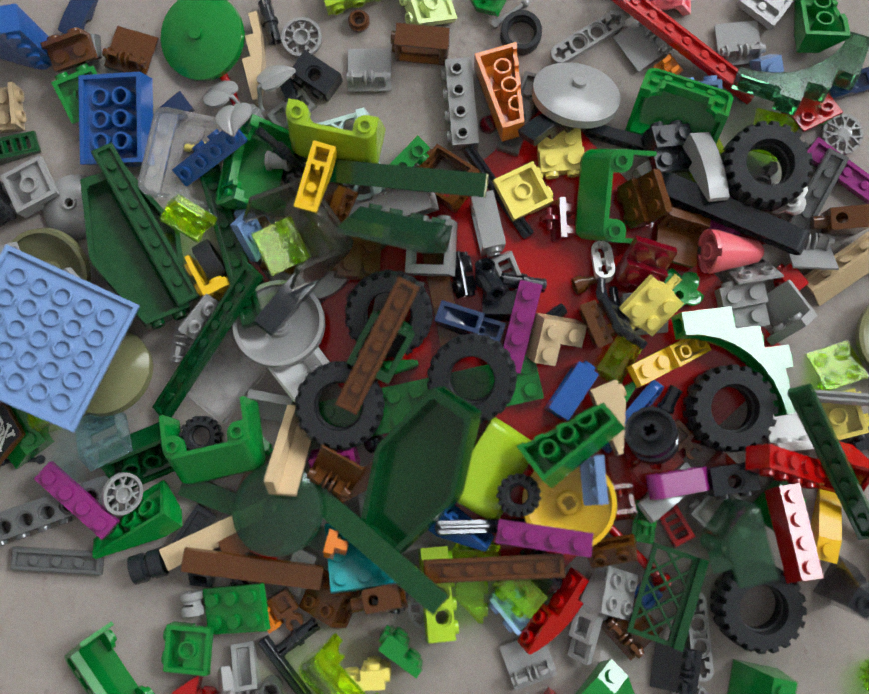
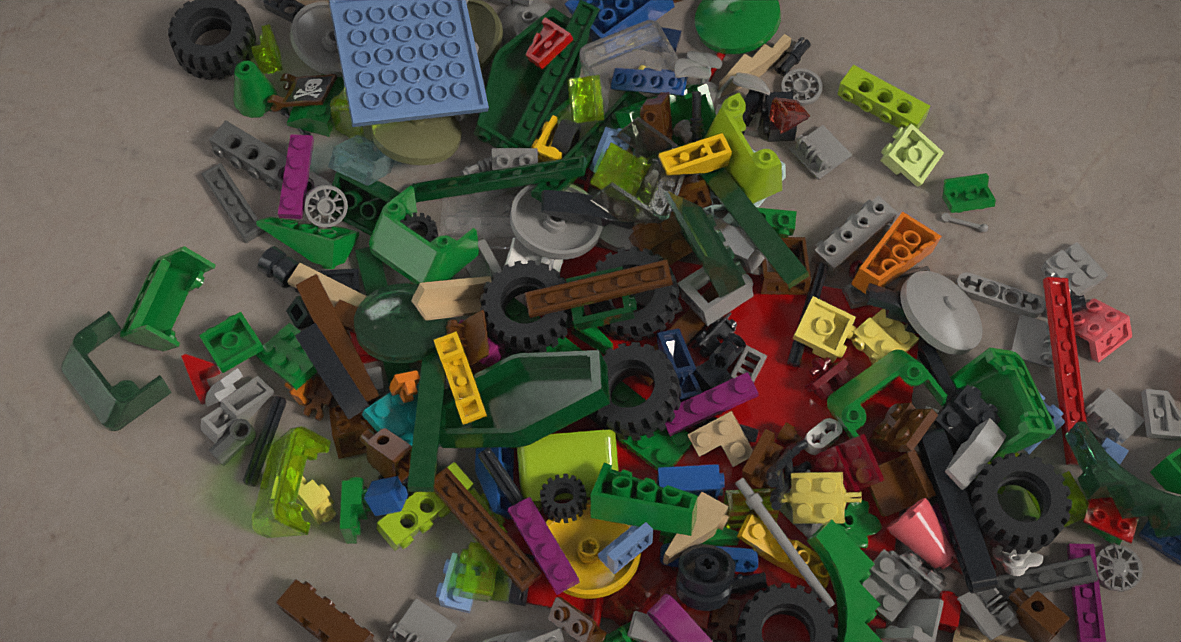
camera: 50 degrees right, 20 degrees down
(114, 211) = (548, 43): none -> red wing
(191, 603) = (271, 321): light grey wheel -> none
(251, 175) = (658, 114): none -> reddish brown plate
(278, 594) = (332, 370): none -> black slope
(297, 637) = (289, 421): black pin -> none
(324, 70) = (787, 113): none -> clear red slope
(355, 15) = (855, 112): reddish brown plate -> none
(367, 503) = (460, 378): none -> yellow slope
(413, 623) = (386, 496): none -> blue brick
(420, 43) = (874, 169): reddish brown window -> none
(471, 597) = (445, 538): clear neon green slope -> none
(487, 225) = (772, 318): light grey window -> none
(512, 280) = (740, 368): black pin -> none
(529, 18) = (964, 227): black tyre -> none
(554, 617) = (472, 619): red slope -> none
(628, 356) = (754, 502): none -> light grey bar
(670, 65) = (1039, 375): orange tile -> none

